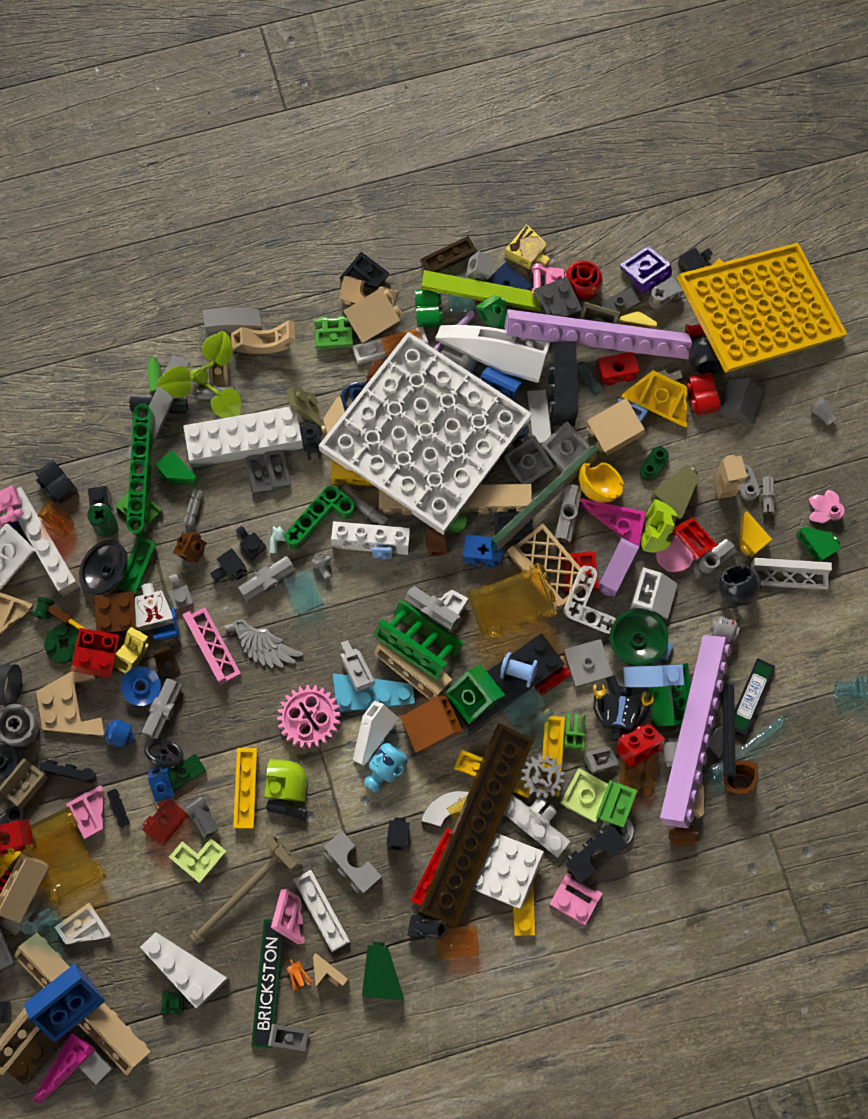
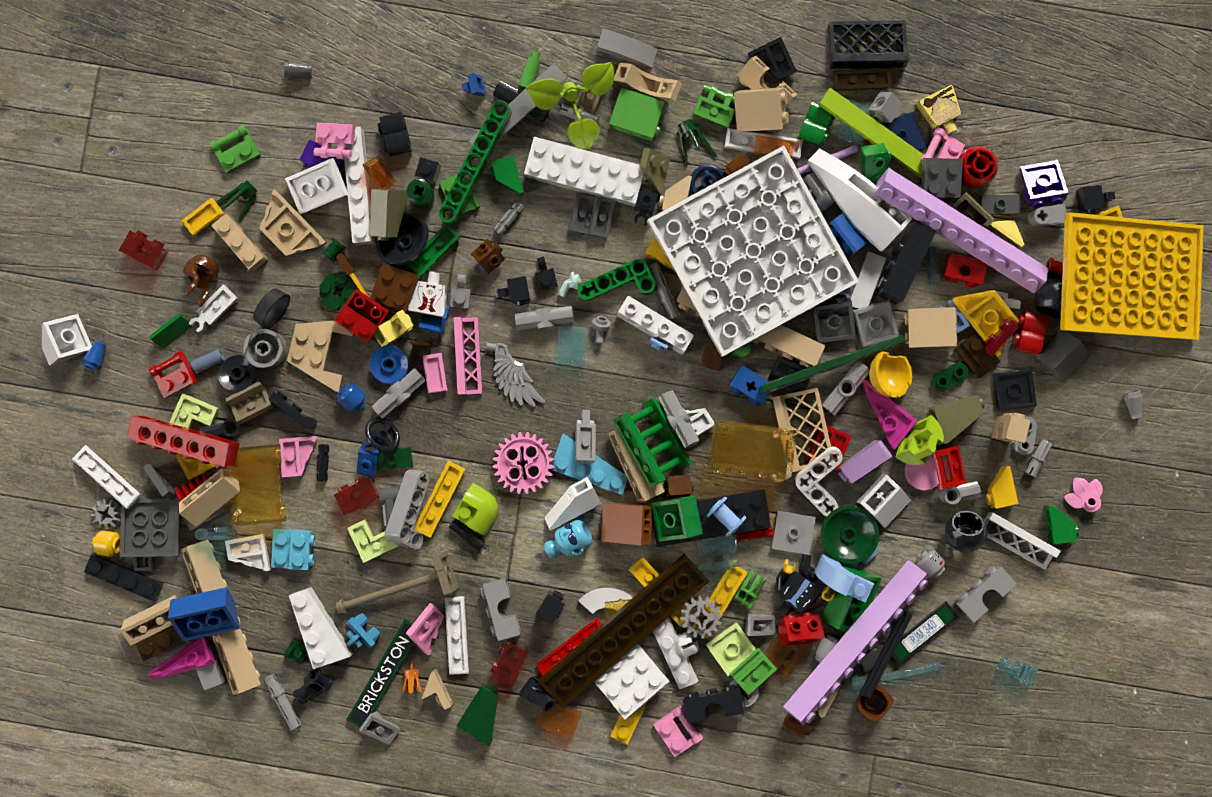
camera: 25 degrees right, 15 degrees up
(78, 549) = (386, 212): none -> olive slope
(110, 409) = (475, 85): none -> blue tile
(124, 904) = (292, 549): none -> medium azure plate
(179, 1060) = (282, 702): none -> light grey pin
(188, 675) = (434, 373): none -> bright pink tile
(203, 1027) = (313, 684): none -> black connector
(218, 812) = (406, 510): none -> light grey beam
(227, 955) = (356, 625): none -> dark azure hips
(267, 369) = (637, 114): none -> bright green brick
(319, 362) = (688, 130): none -> dark green plant
(389, 911) = (512, 664): none -> clear red brick
(445, 236) = (868, 60): none -> black fence
(459, 666) = (677, 487): none -> reddish brown brick
(667, 434) = (975, 357): none -> dark brown plate
(676, 411) = (996, 340): none -> dark red plate
(714, 446) = (1014, 389): none -> black tile
(780, 648) = (971, 601): none -> light grey arch

